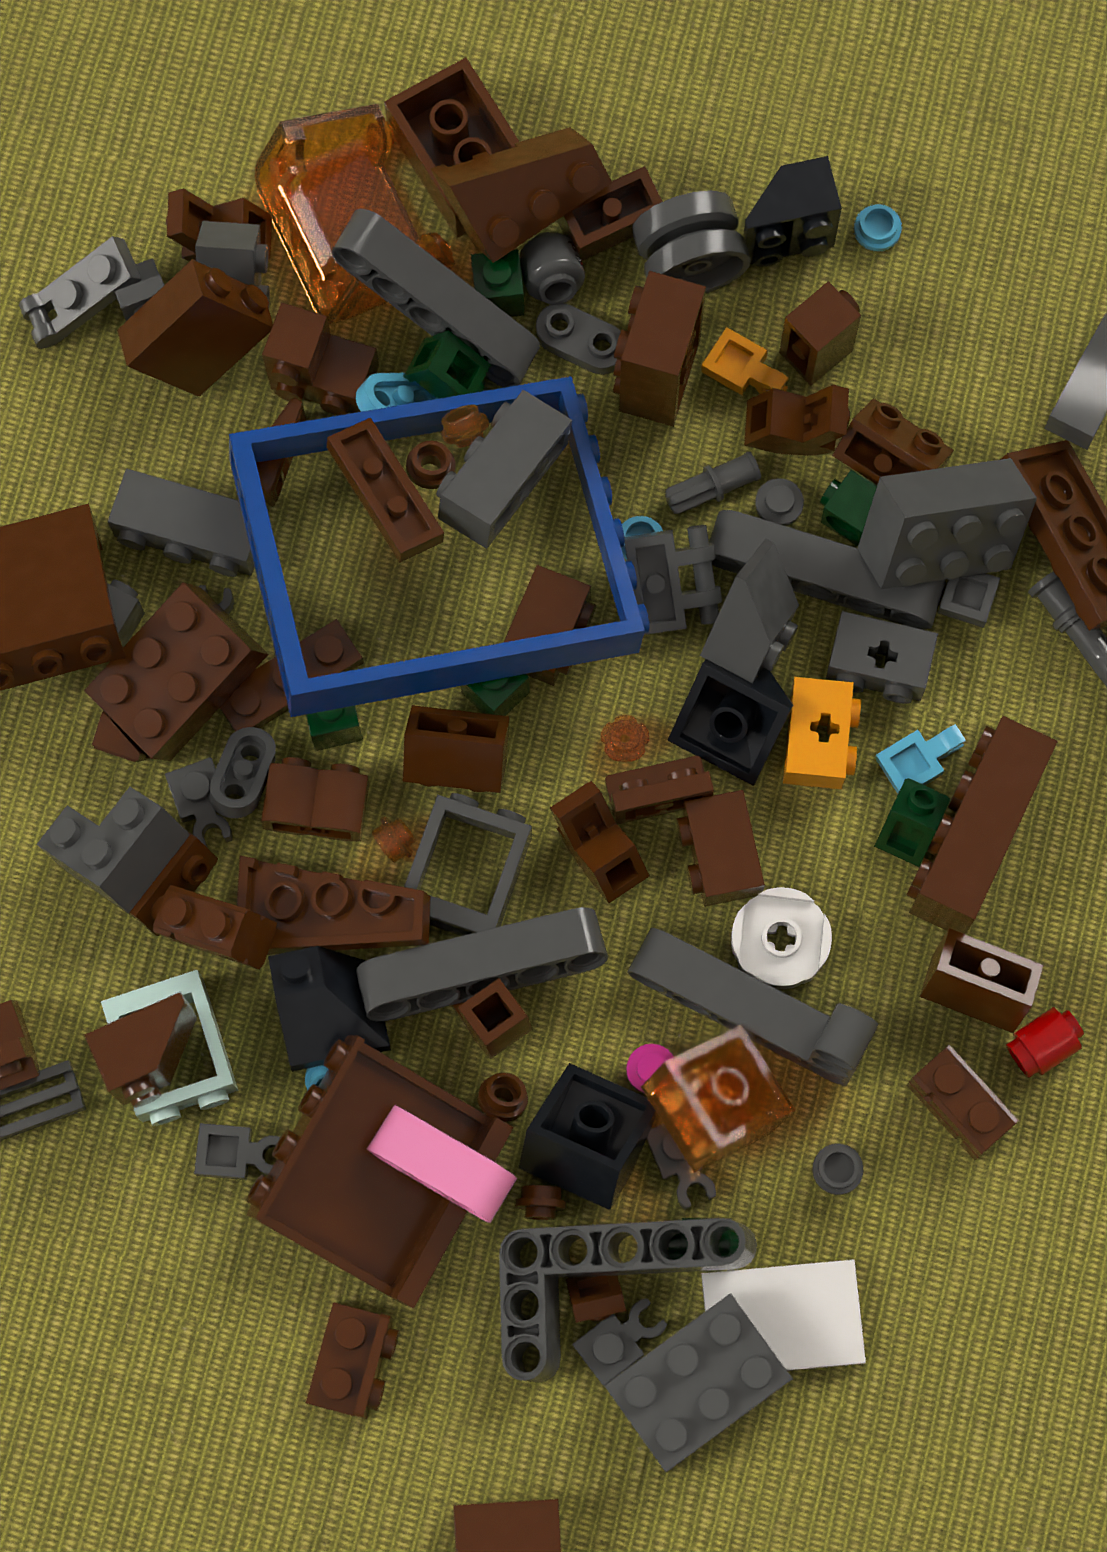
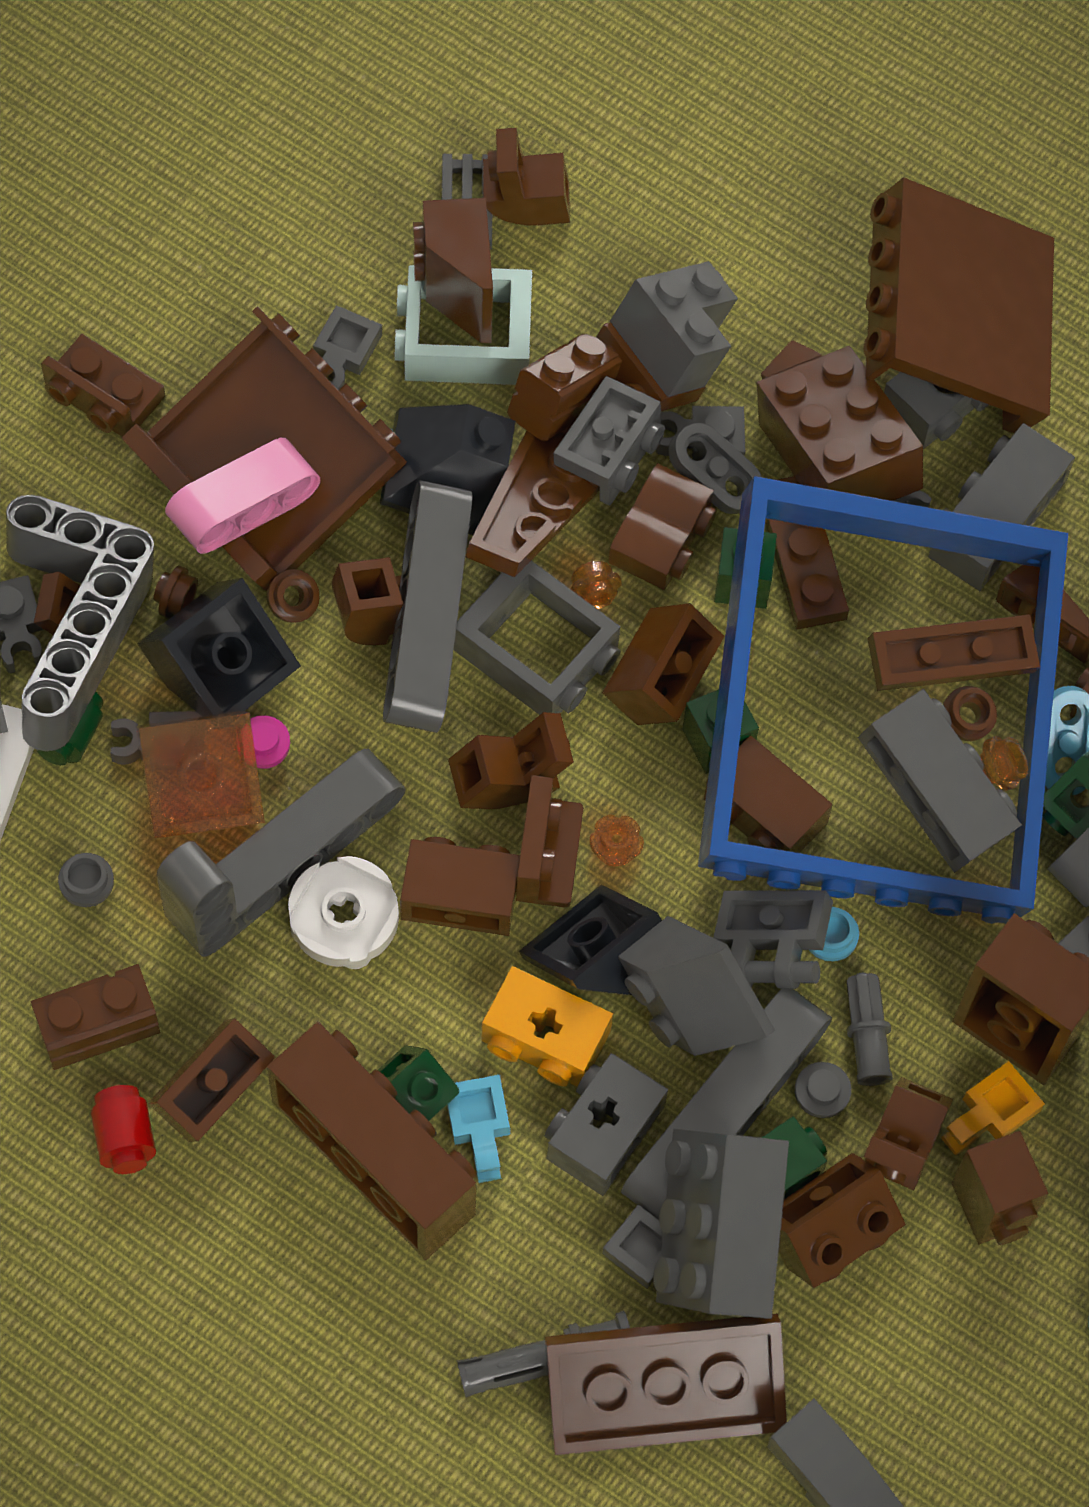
camera: 105 degrees right, 10 degrees down
(252, 867) = (611, 438): none -> dark grey bracket

